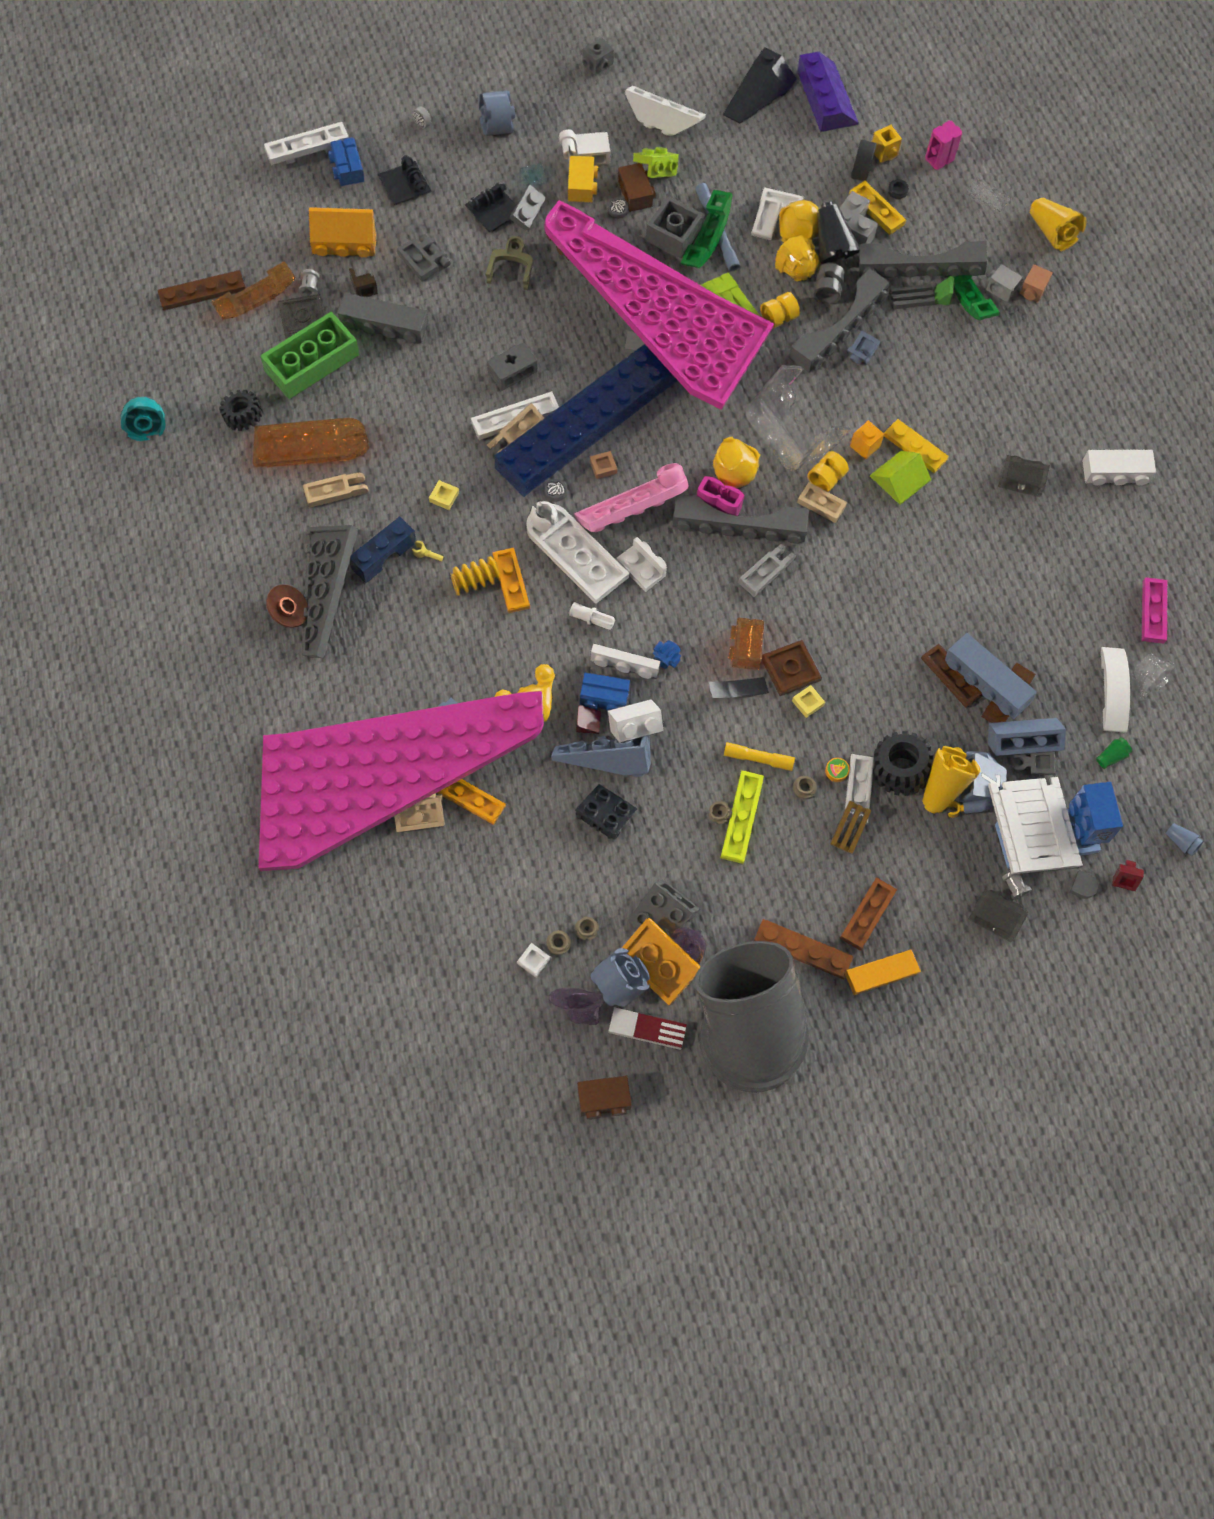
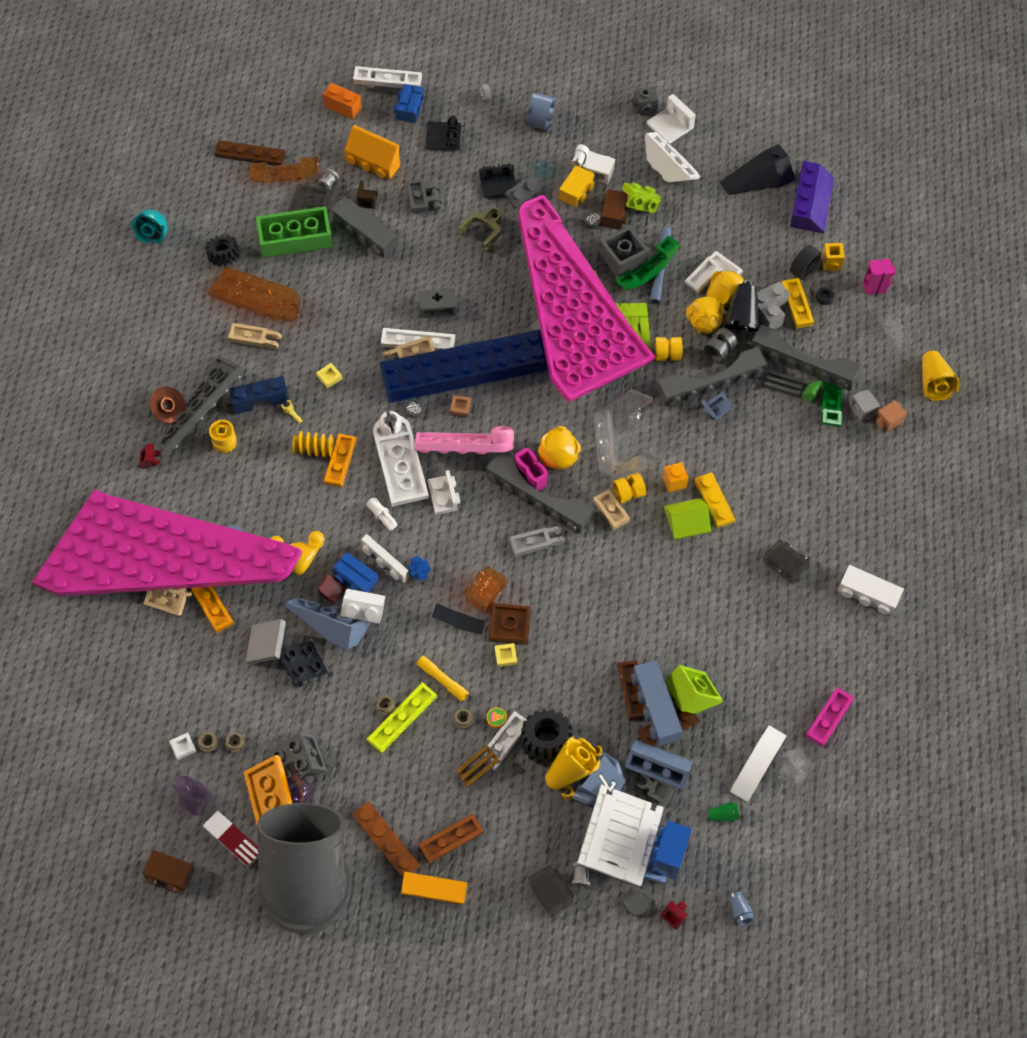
camera: 30 degrees right, 5 degrees down
(271, 189) = (342, 101): none -> orange brick
(300, 672) = (147, 456): none -> dark red tile
(372, 611) = (223, 436): none -> yellow wheel
(556, 807) = (265, 641): none -> light grey tile
(621, 978) = (231, 790): sand blue brick -> none
(638, 66) = (673, 121): none -> white bracket
(1014, 647) = (692, 690): none -> lime slope

